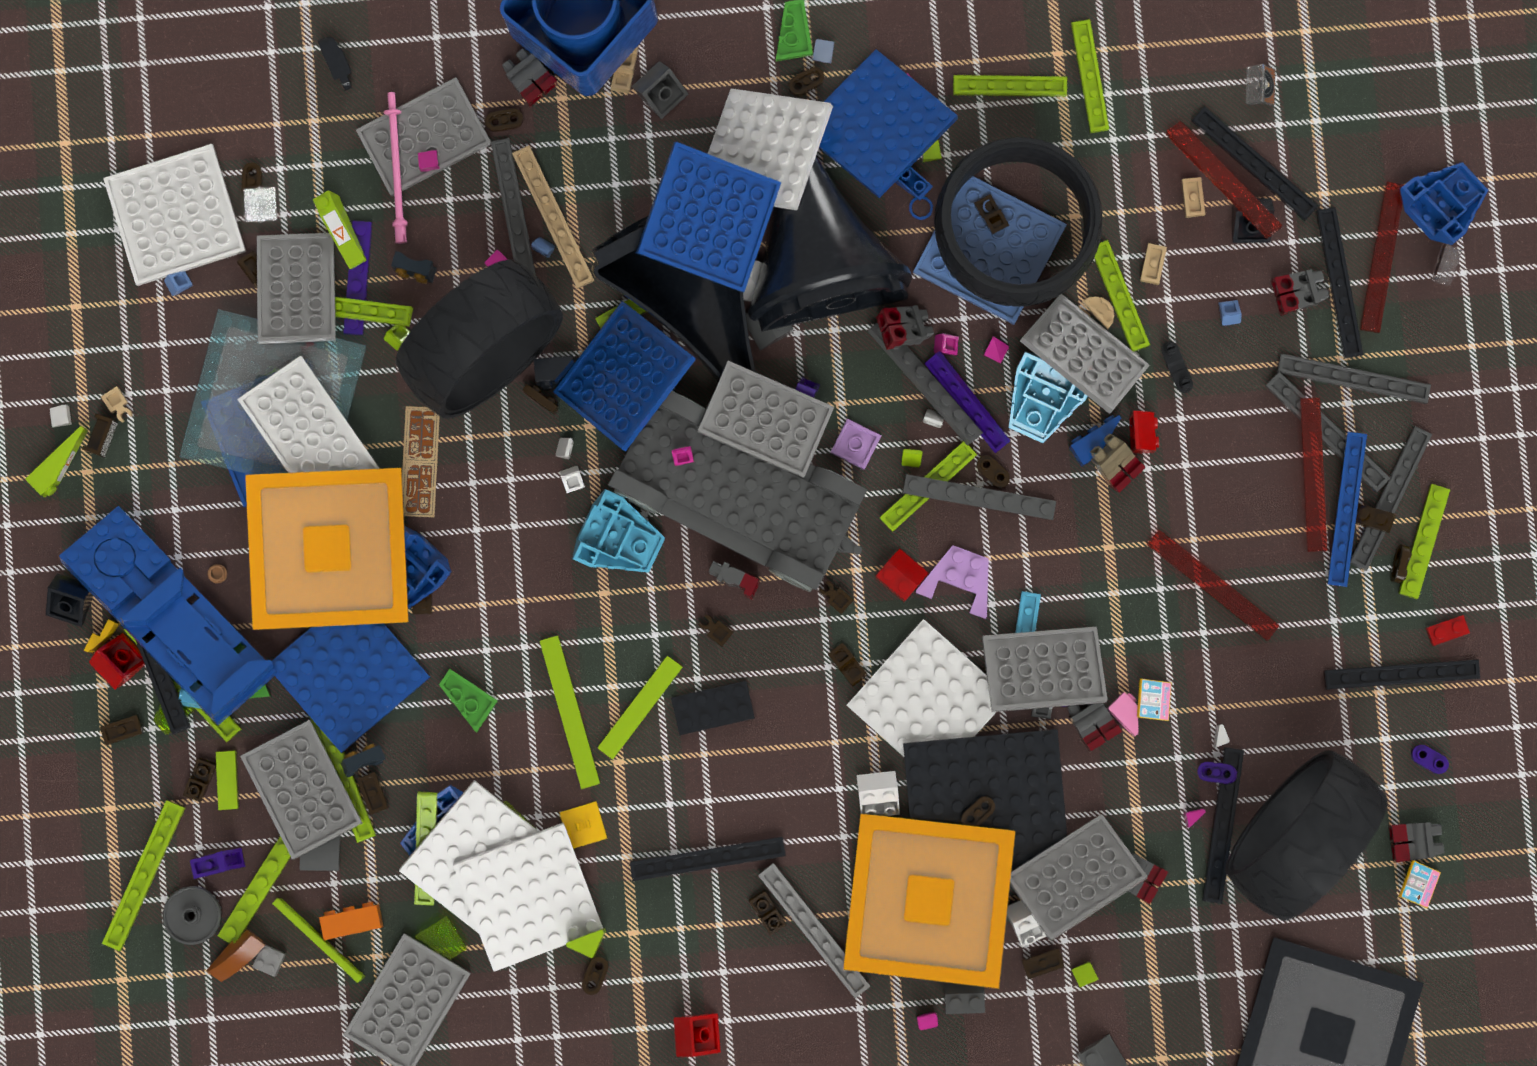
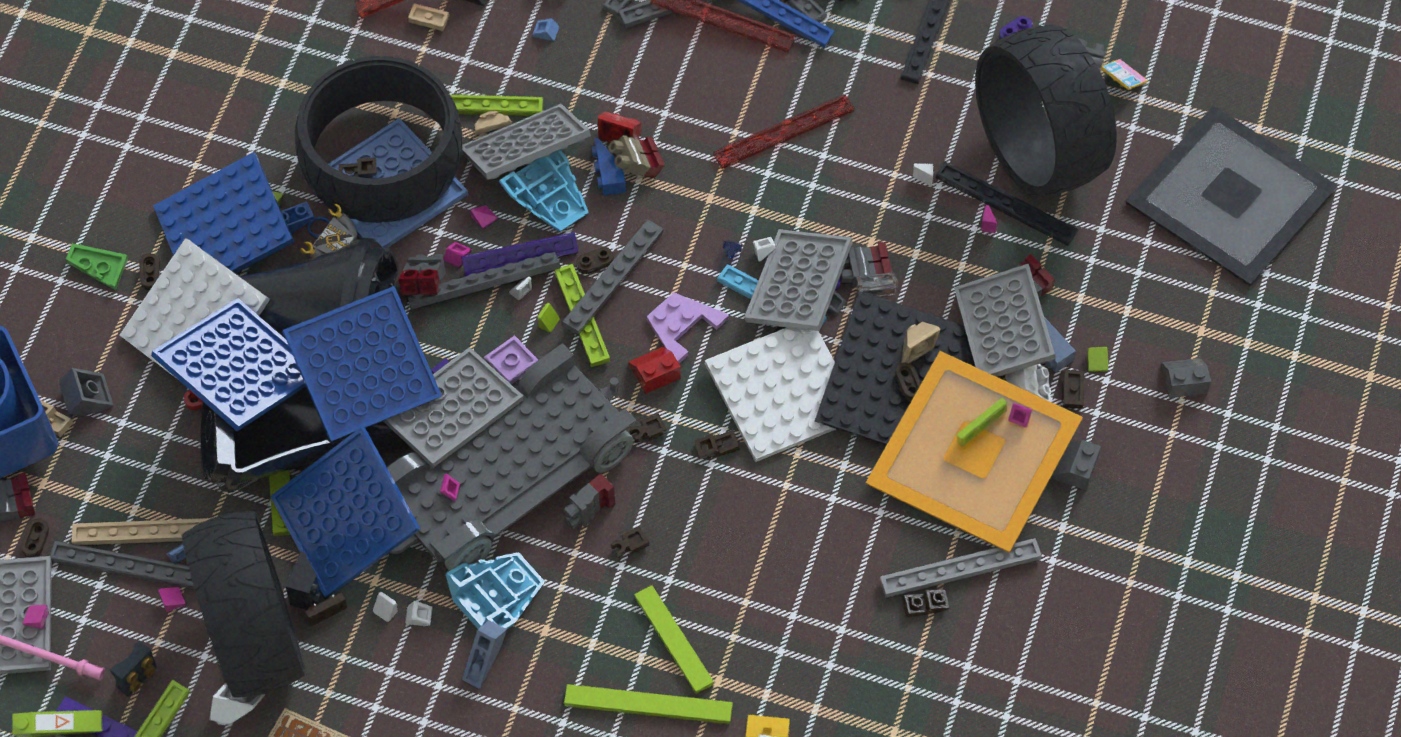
camera: 70 degrees left, 25 degrees down
(396, 336) = (192, 718): lime slope -> none
(550, 554) = (483, 653): none -> sand blue slope
(697, 1035) = (1020, 709): red slope -> none
(707, 859) = (850, 635): black plate -> none
(713, 708) = (704, 575): black plate -> none
(757, 326) = (362, 363): none -> blue plate
(823, 51) = (129, 246): sand blue slope -> none
(878, 794) = (852, 462): white slope -> none
(904, 231) = (336, 235): none -> torso
(927, 1021) = (1088, 504): dark pink slope -> none
(953, 898) = (982, 422): none -> lime tile
(975, 931) = (1020, 415): none -> dark pink slope
(1010, 85) = (248, 117): lime tile -> none
(1020, 804) = (919, 341): none -> tan slope
(1059, 591) = (731, 247): none -> clear blue tile
(1070, 621) = (763, 247): none -> white slope
(1073, 741) = (877, 284): none -> clear panel
(1077, 935) = (1063, 350): none -> sand blue slope
(1090, 76) = (275, 54): lime tile -> none
(1125, 712) = (870, 234): bright pink slope -> none
(1153, 264) = (471, 68): tan plate -> none
(1154, 699) = (867, 210): piece -> none
(1177, 367) = (573, 85): black piece -> none
(1218, 772) = (956, 186): dark purple plate -> none

